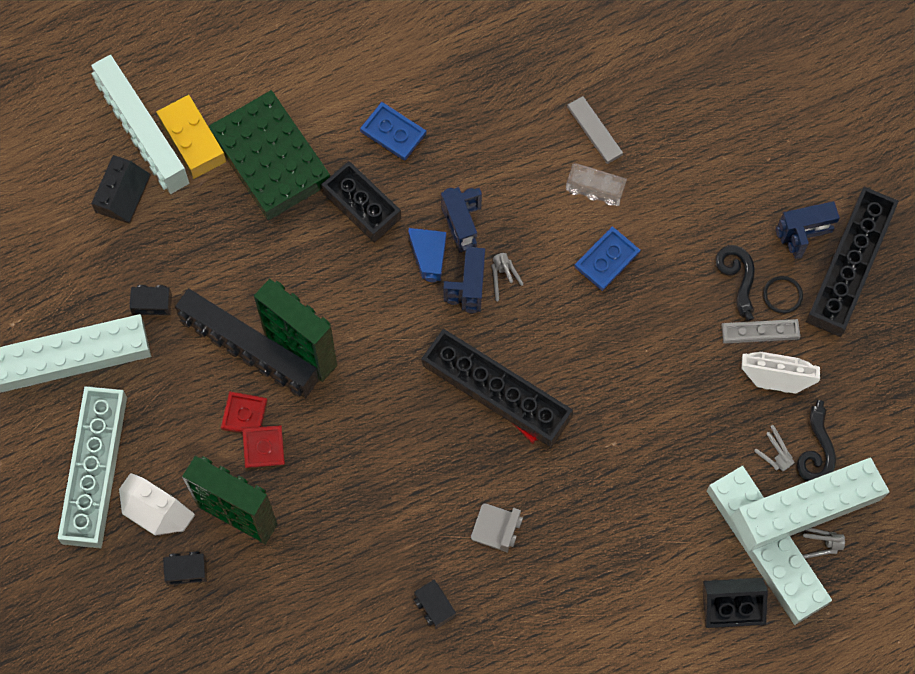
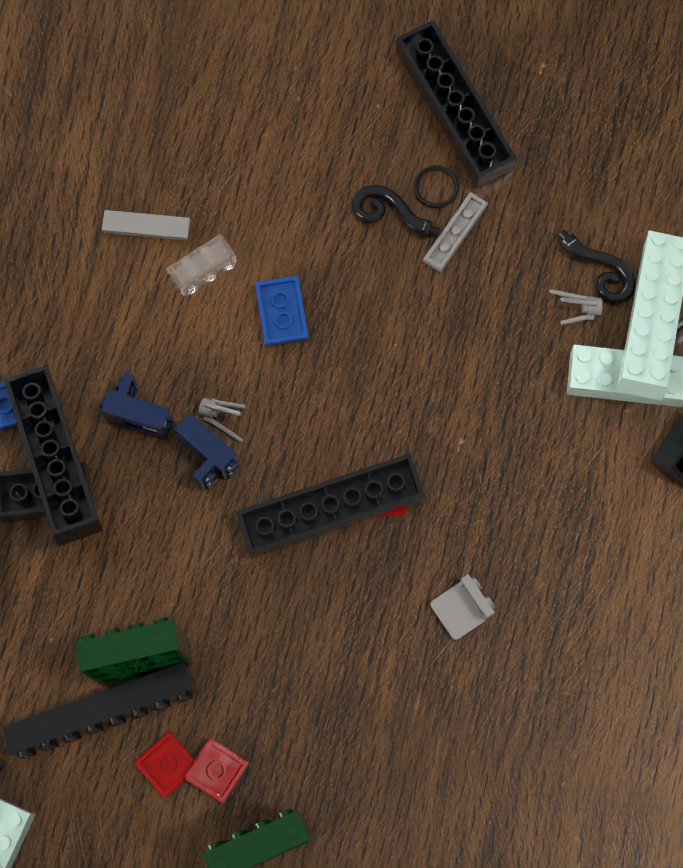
camera: 50 degrees left, 5 degrees up
(387, 185) = (53, 456): none -> black brick
(429, 252) = (145, 467): blue slope -> none
(435, 604) = (494, 721): black brick -> none
(780, 372) = (509, 243): white wedge -> none
(805, 223) = (386, 122): dark blue brick -> none

